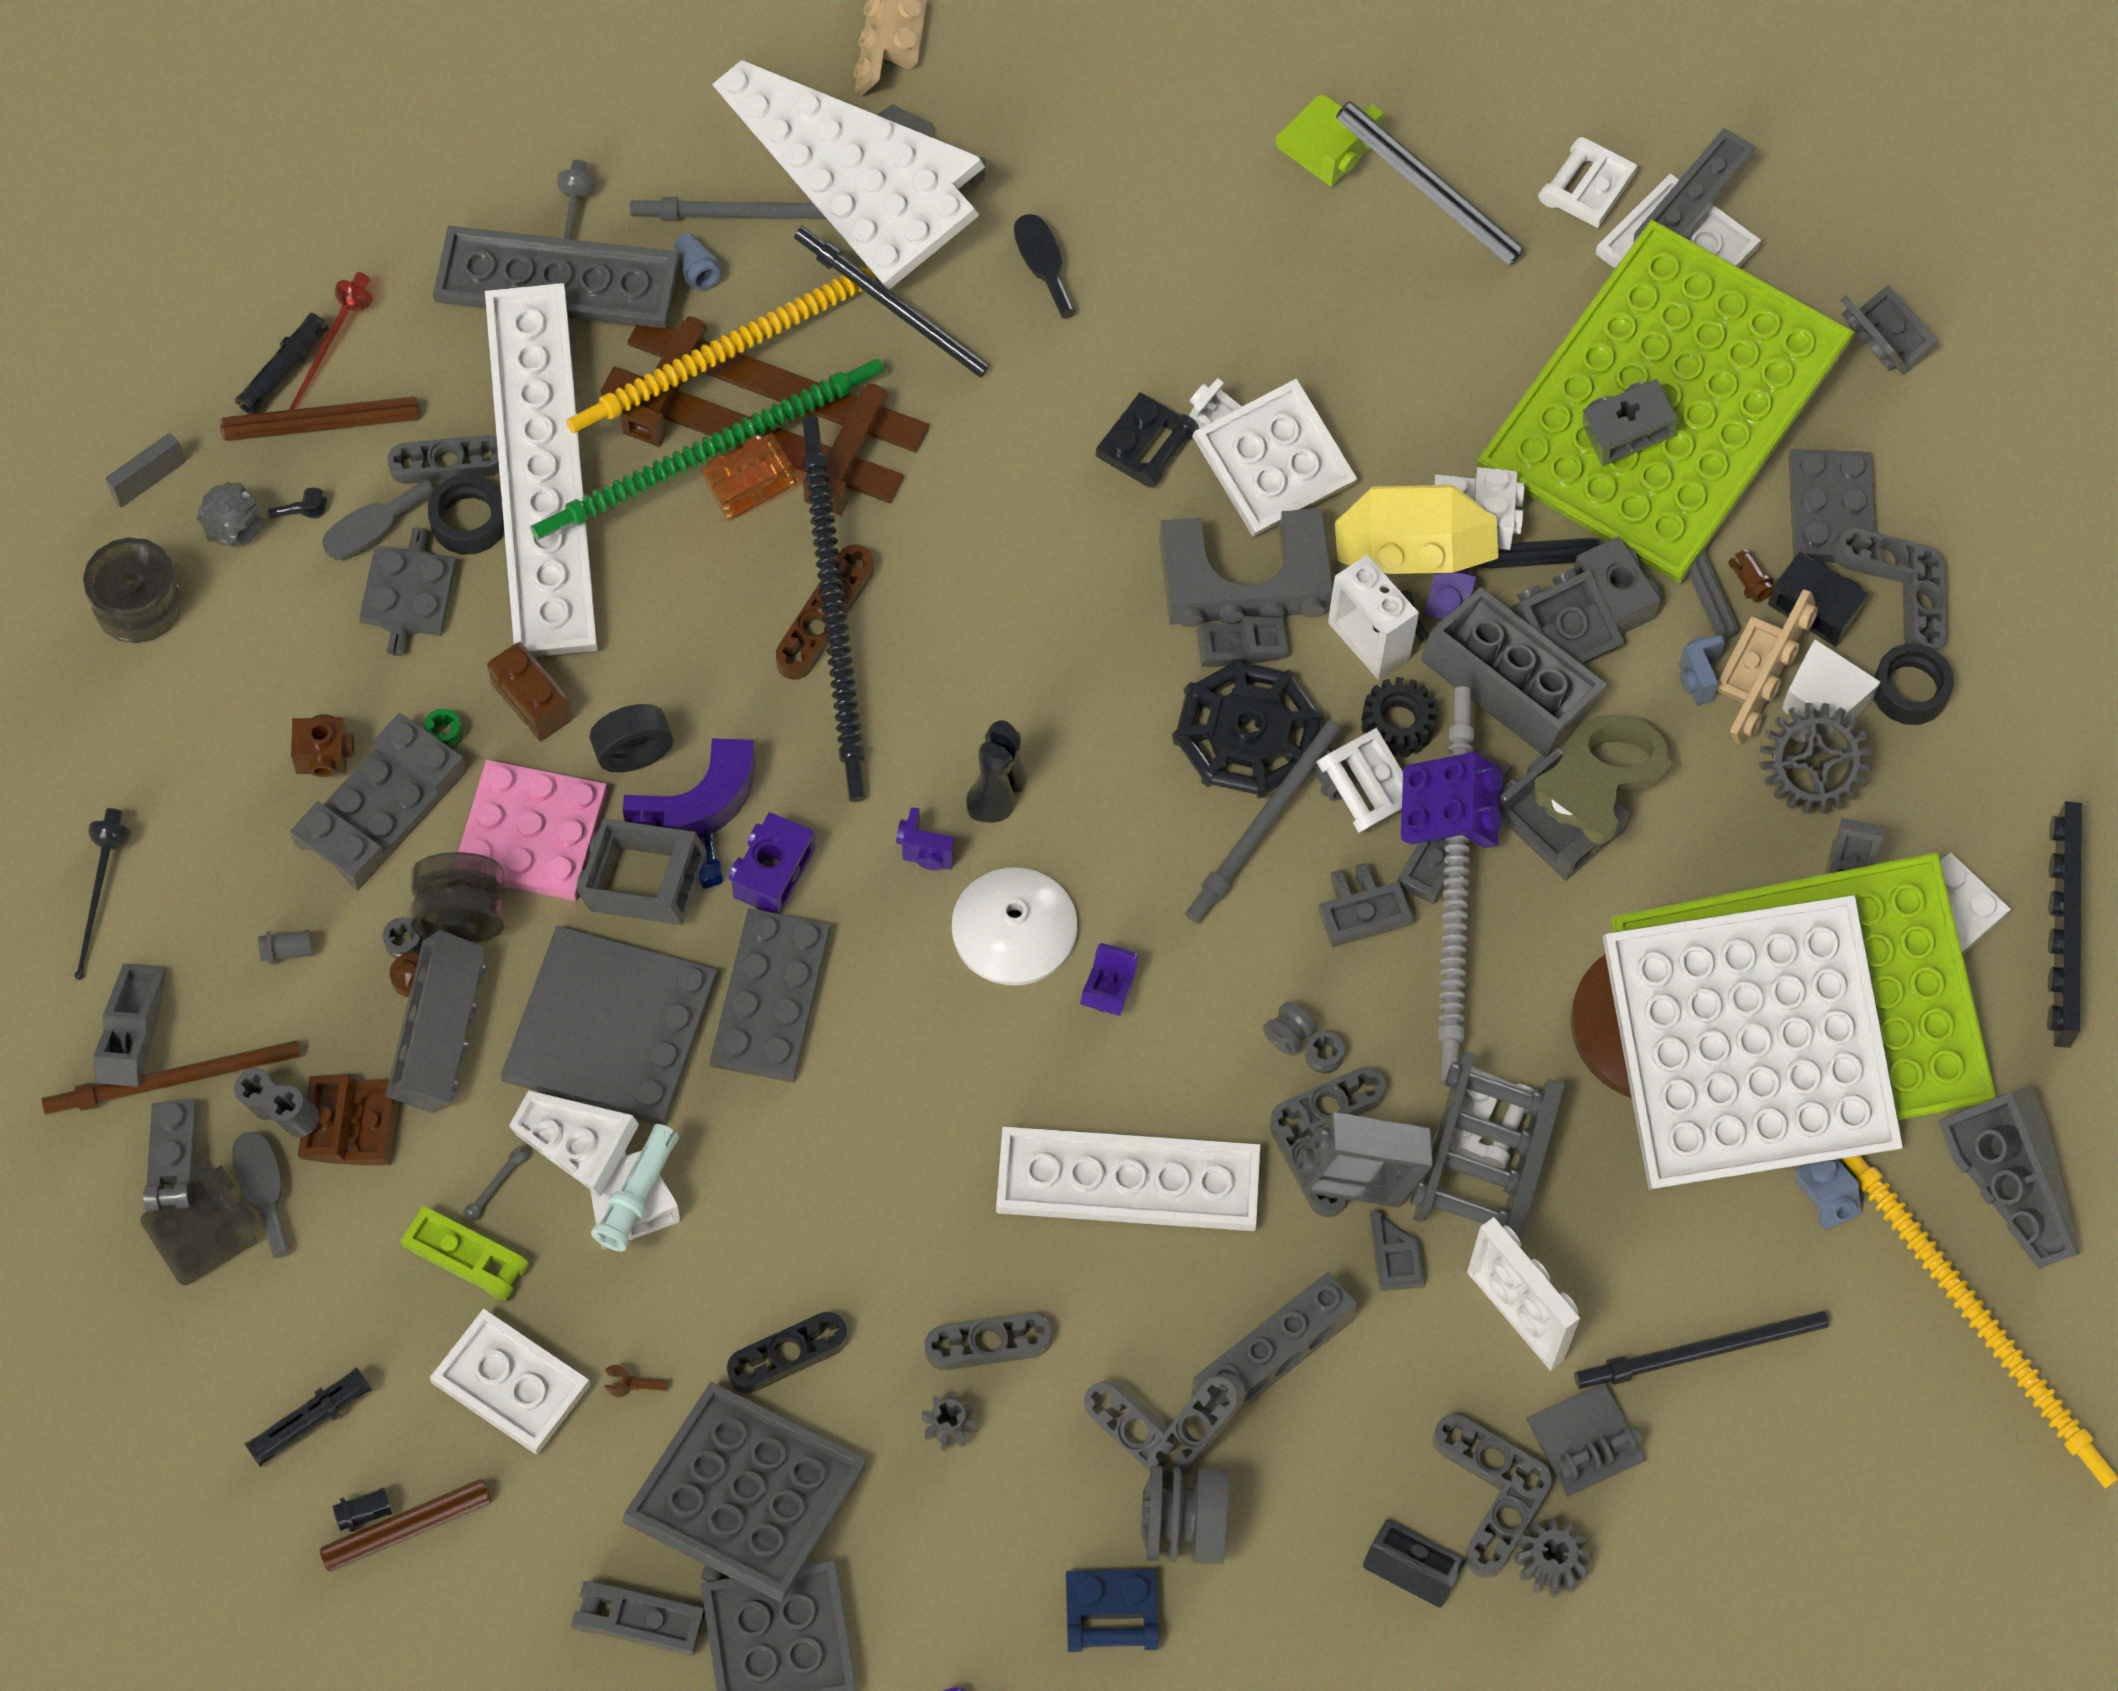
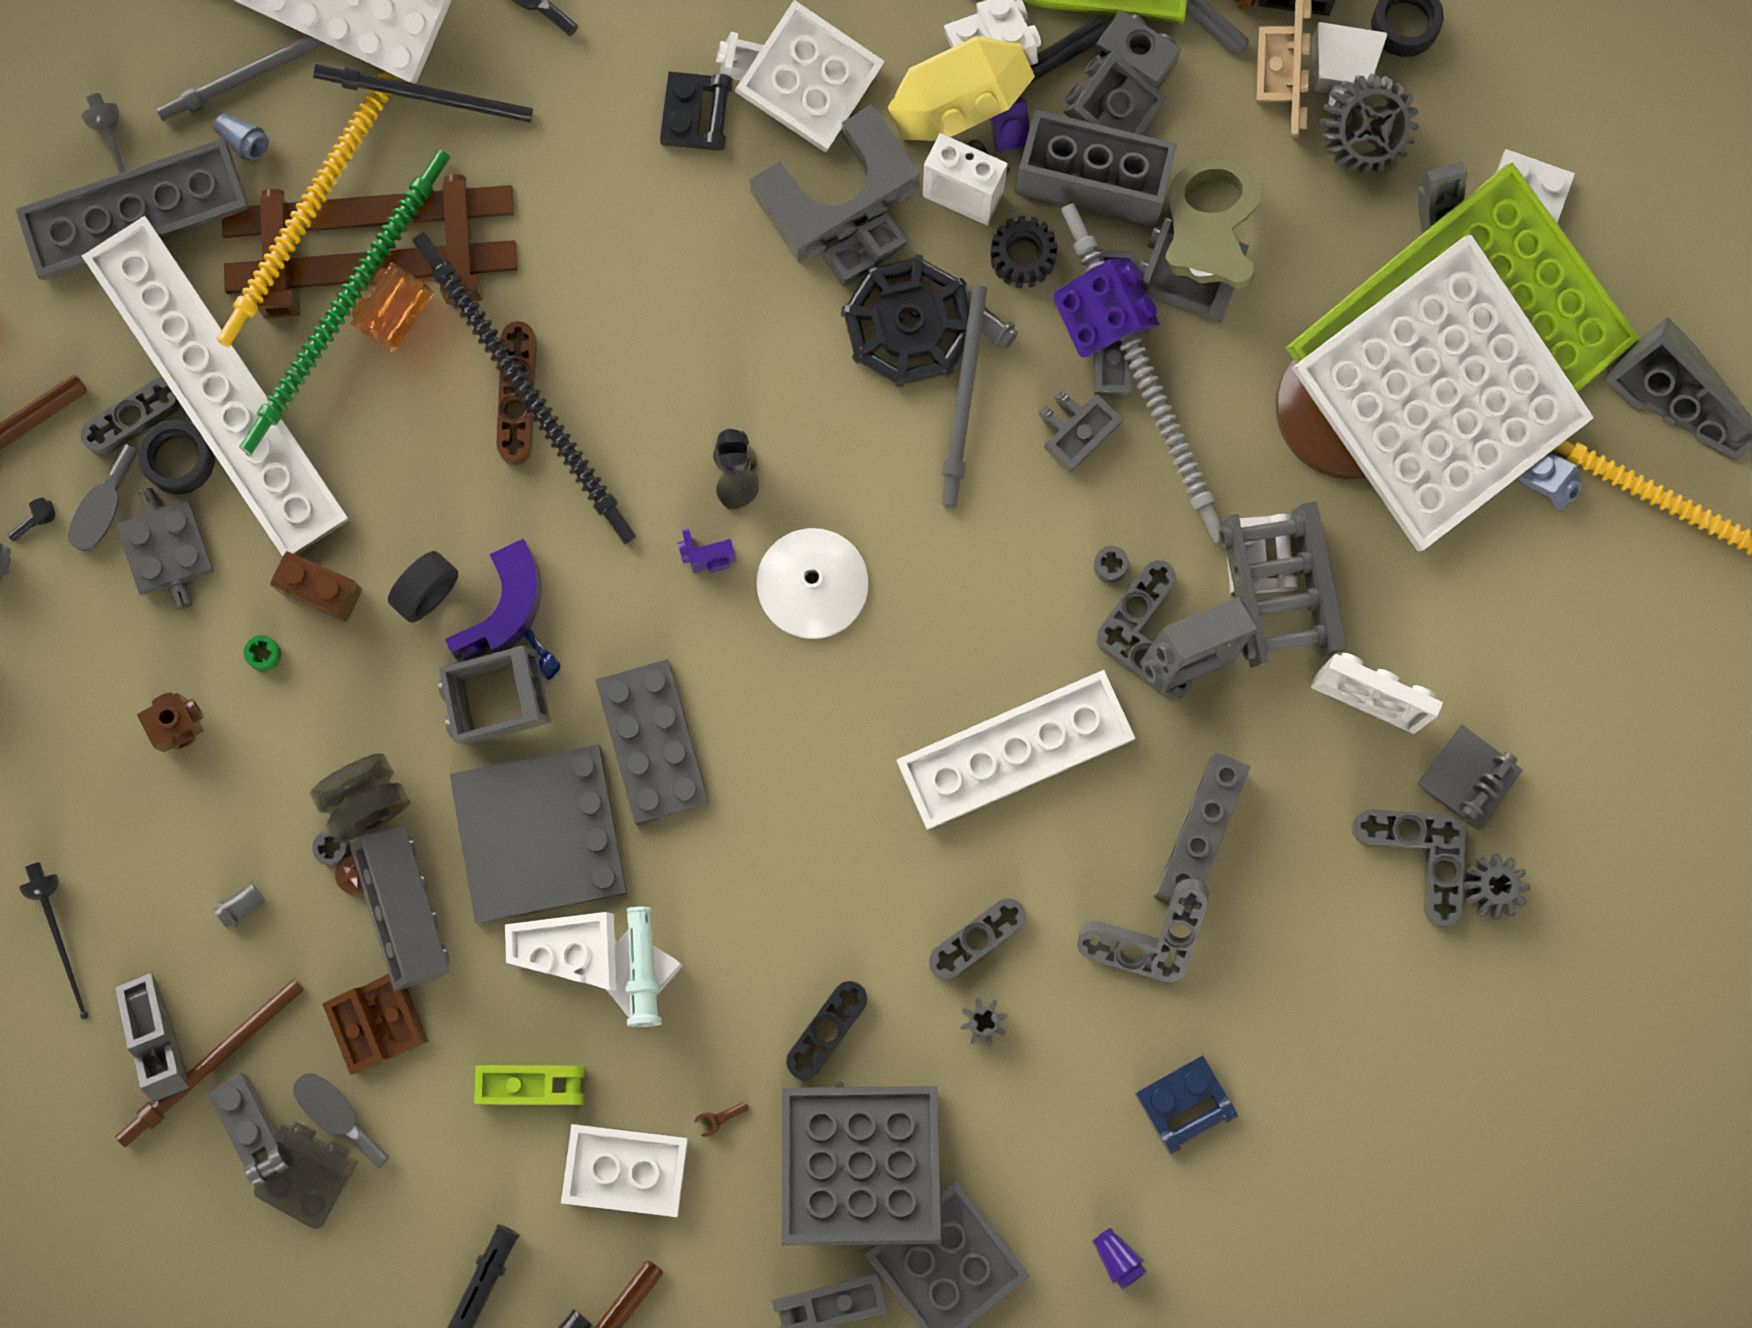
camera: 25 degrees left, 15 degrees up
(276, 1102) = (309, 1043): dark grey axle -> none
(380, 801) = (246, 742): dark grey piece -> none
(473, 1211) = (525, 982): dark grey hinge -> none
(534, 826) = (382, 700): bright pink plate -> none
(771, 886) = (605, 652): dark purple brick -> none
(1110, 979) = (915, 593): dark purple bracket -> none
(1186, 1514) = (1212, 1003): dark grey wheel -> none
(1289, 1028) = (1075, 560): dark grey wheel -> none
(1376, 773) = (1032, 310): white plate -> none
(1395, 1256) = (1250, 703): dark grey tile -> none
(1413, 1563) = (1391, 943): black slope -> none
(1621, 1369) = (1469, 706): black bar -> none
(1696, 670) = (1235, 93): sand blue bracket -> none
(2066, 937) = (1628, 174): black plate -> none

